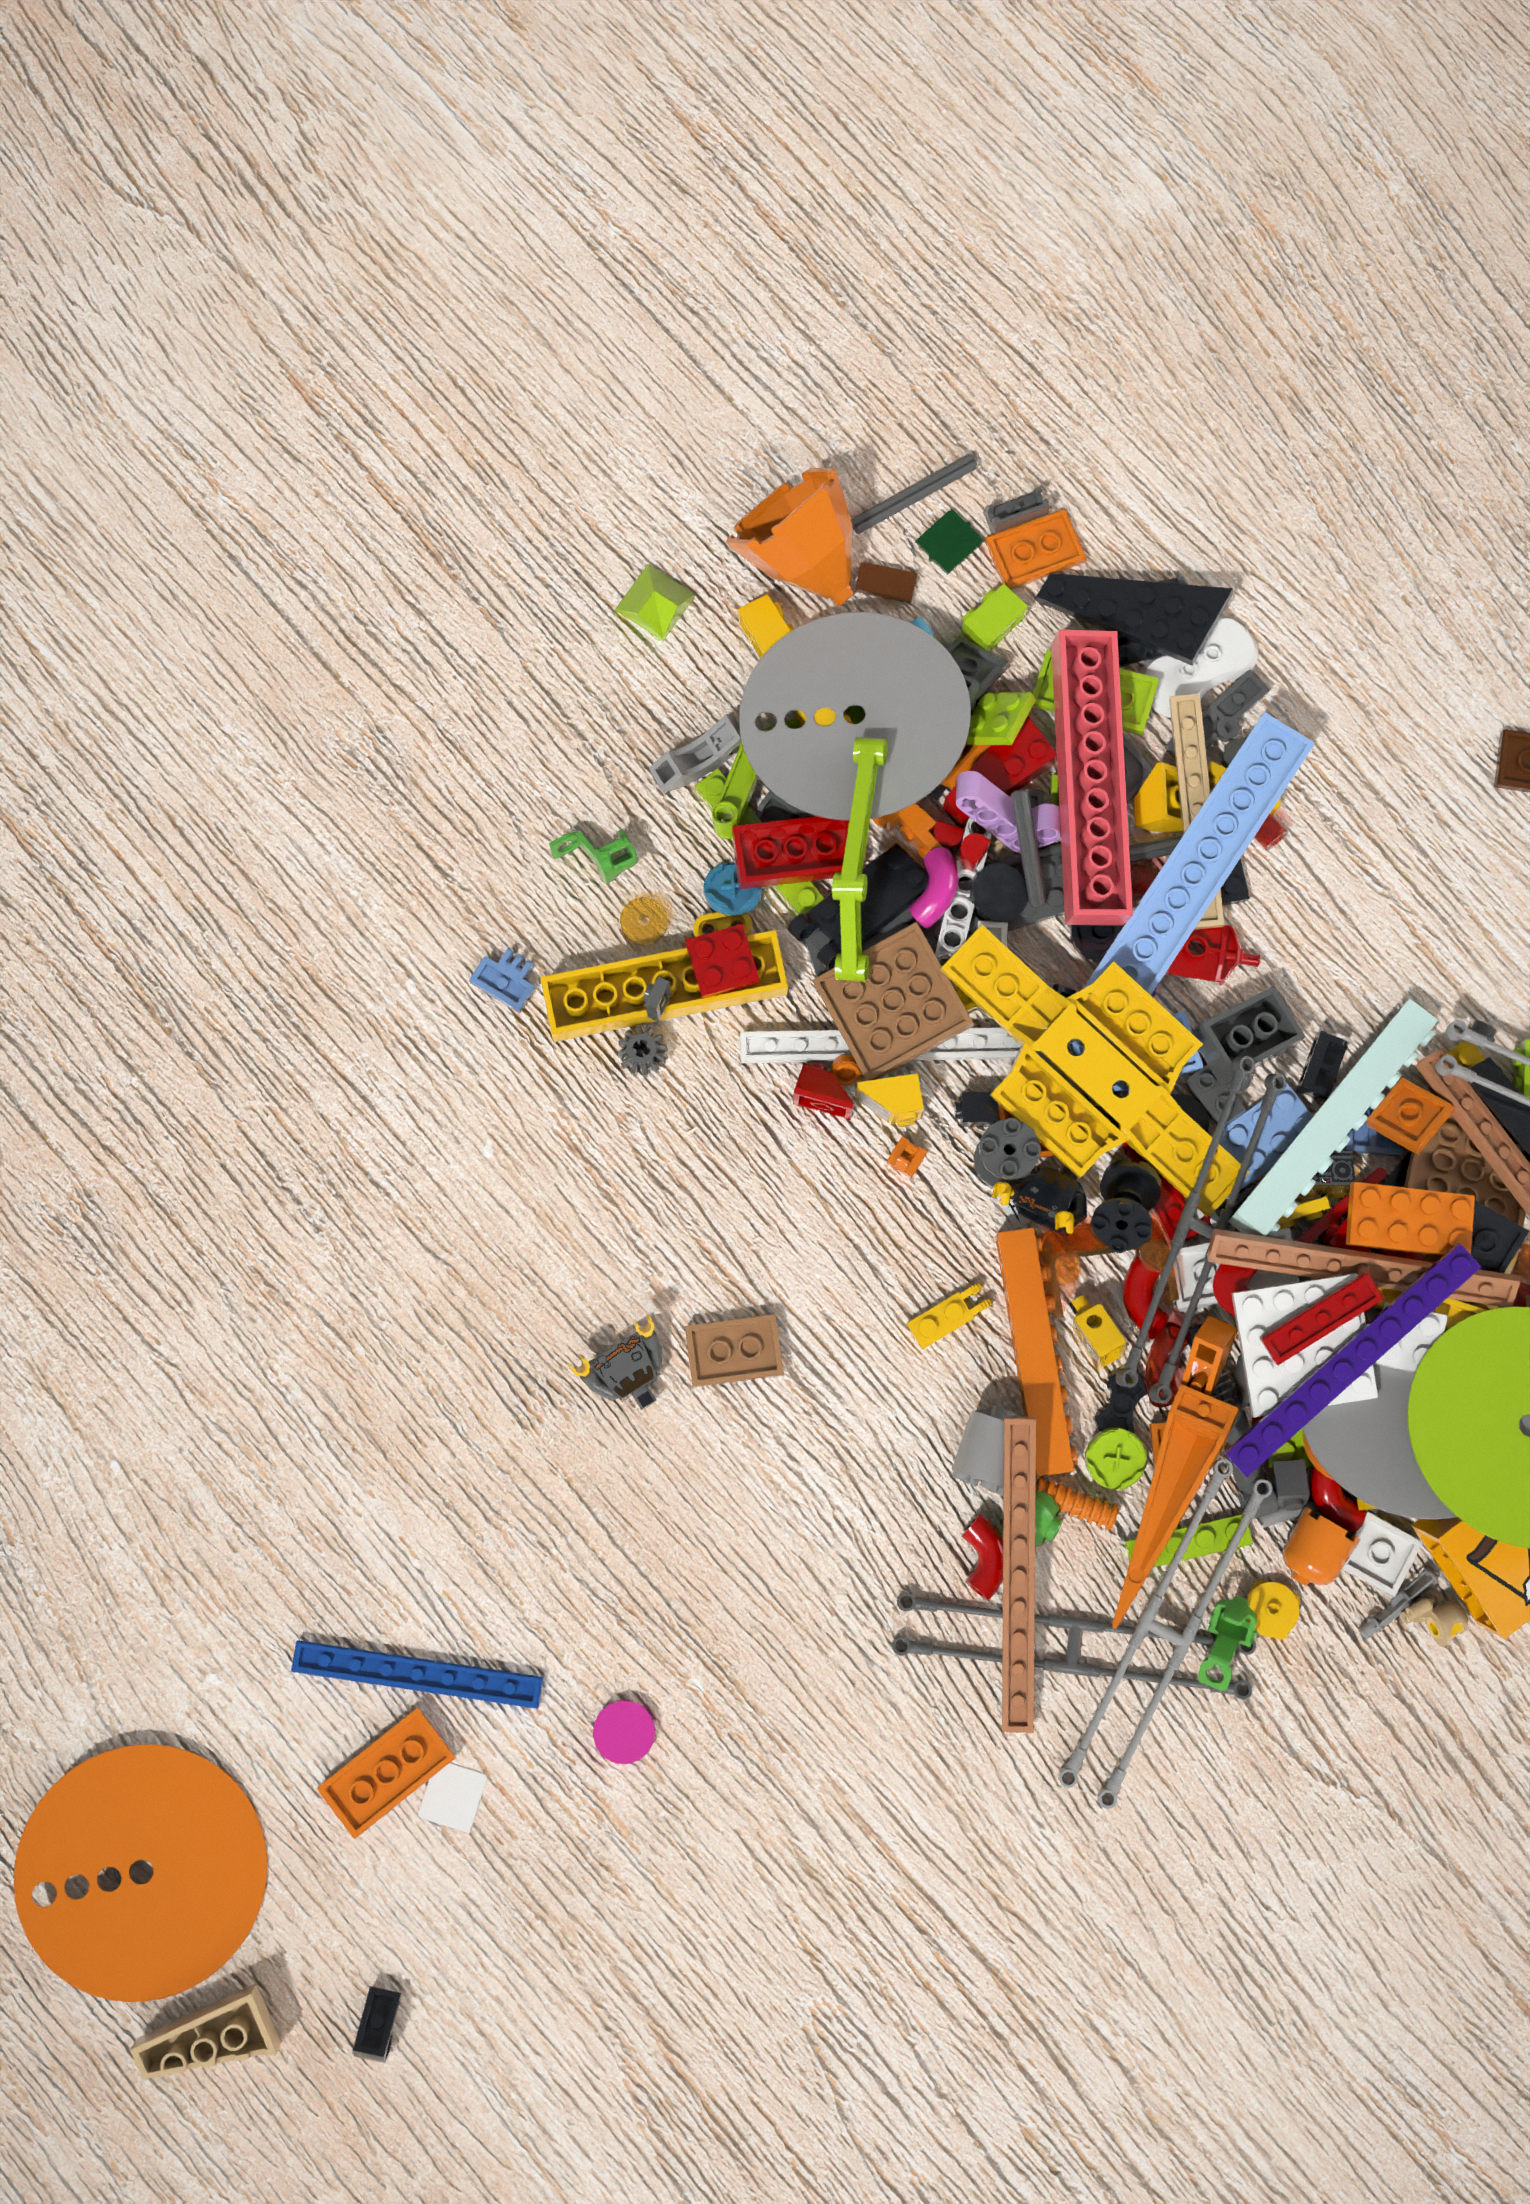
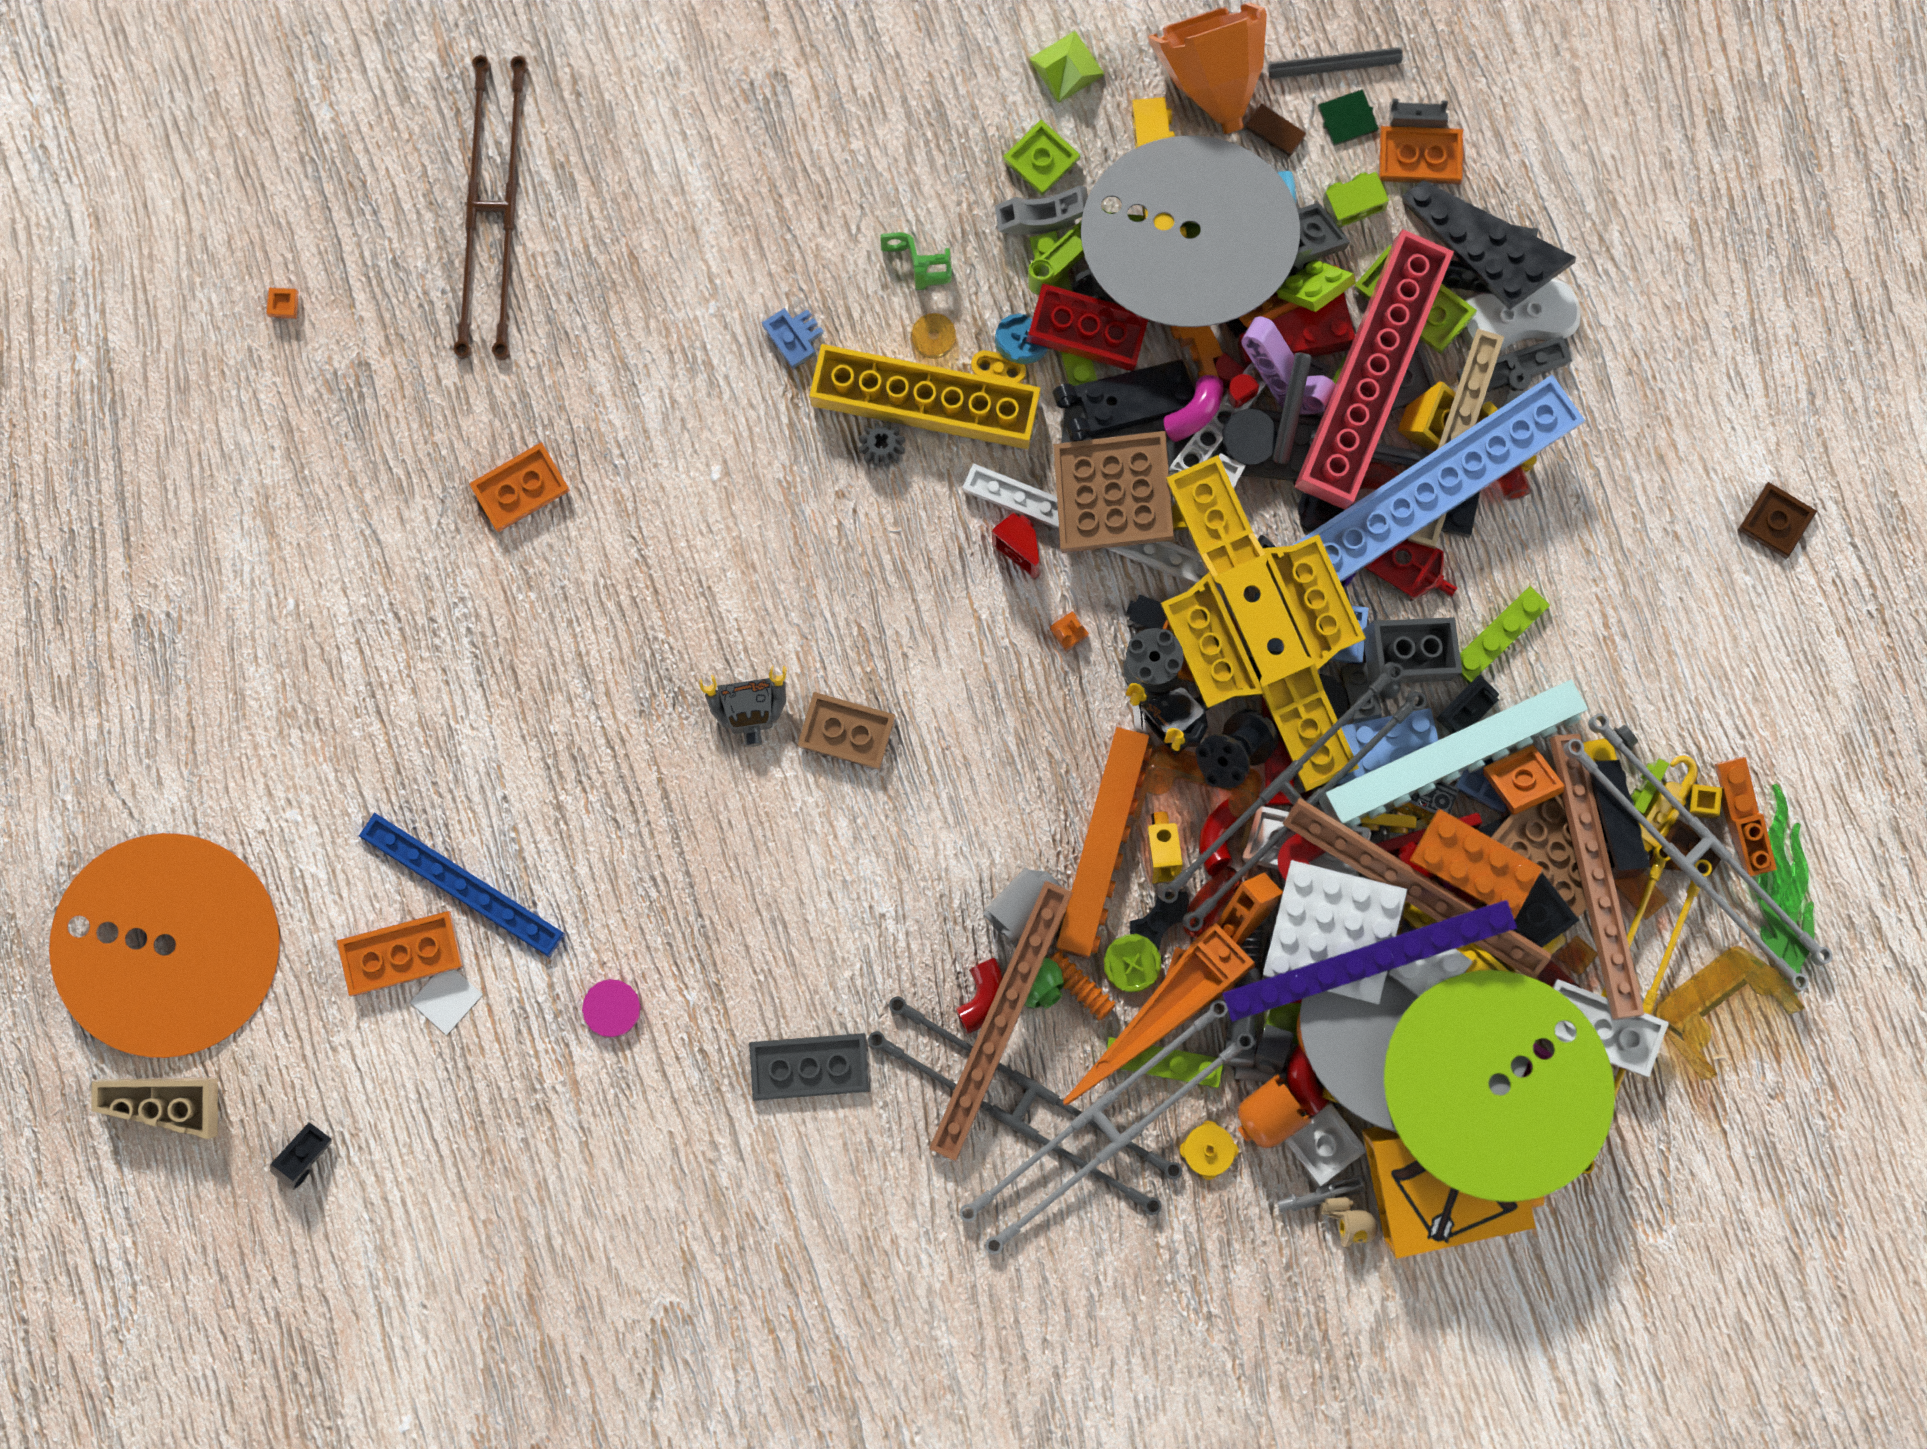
camera: 30 degrees right, 0 degrees up
(159, 970) = (474, 206): none -> reddish brown bar
(298, 1247) = (519, 487): none -> orange plate
(657, 998) = (910, 401): dark grey plate -> none
(671, 702) = (1041, 157): none -> lime plate
(722, 961) = (981, 394): red plate -> none
(846, 1070) = (1048, 534): orange tile -> none
(846, 1702) = (809, 1067): none -> dark grey tile
(851, 884) = (1117, 369): lime piece -> none
(893, 1098) = (1077, 574): yellow slope -> none
(946, 1317) = (1042, 781): yellow hinge -> none
(1231, 1631) = (1166, 1149): bright green piece -> none
(1321, 980) = (1501, 633): none -> lime plate
(1321, 1318) = (1358, 913): red tile -> none

